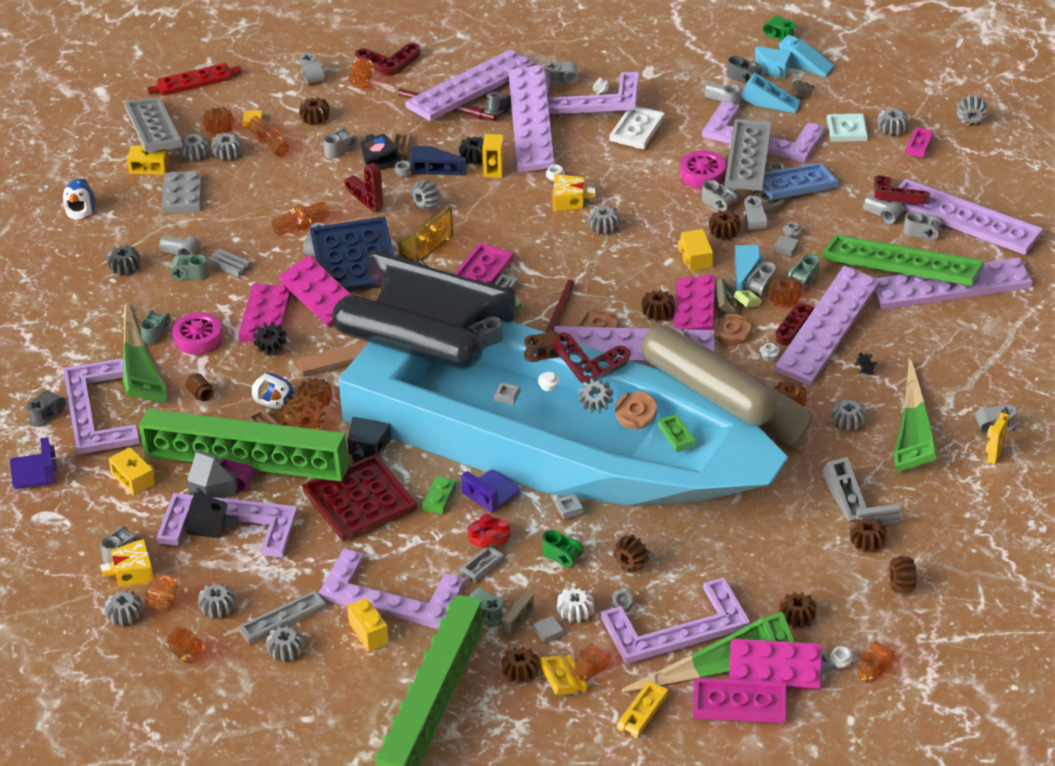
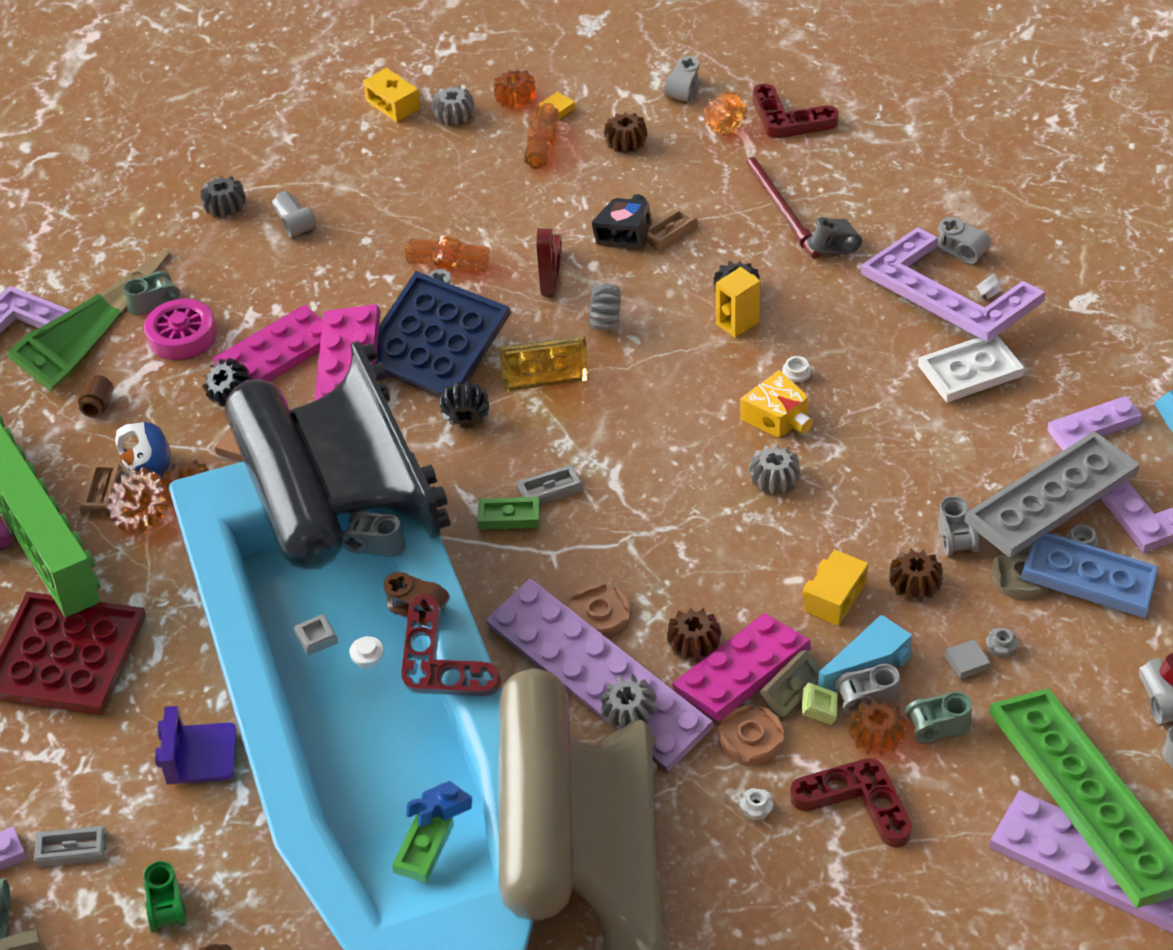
camera: 45 degrees right, 5 degrees up
(77, 192) = (273, 95): piece -> none
(153, 124) = (436, 56): light grey plate -> none
(181, 192) = (381, 152): light grey plate -> none
(192, 267) = (270, 246): sand green piece -> none
(194, 79) = (558, 27): red plate -> none
(226, 146) = (485, 123): light grey gear -> none
(228, 261) = (317, 251): light grey tile -> none
(339, 143) = (600, 185): light grey piece -> none
(367, 438) = (161, 582): black torso -> none
(402, 169) = (632, 259): light grey plate -> none
(436, 162) = (671, 268): dark blue slope -> none
(439, 495) = (143, 714): bright green plate -> none
(467, 85) = (836, 196): lavender plate -> none
(485, 263) = (546, 446): dark pink plate -> none
(488, 531) = (110, 797): red plate -> none
(531, 118) = (847, 280): lavender plate -> none
(560, 306) = (505, 590): dark red bar -> none
(569, 506) = (248, 844): light grey plate -> none
(587, 395) = (389, 715): light grey gear -> none
(636, 410) = (417, 768): nougat tile -> none
(666, 410) = (441, 801): none -> blue plate
(702, 166) = (981, 472): dark pink wheel -> none
(721, 93) = (1137, 387): light grey piece -> none
(754, 214) = (971, 584): light grey piece -> none
(793, 391) = (695, 893): clear orange gear -> none
(827, 325) = (872, 820): lavender plate -> none
(865, 362) = (856, 919): black wheel -> none

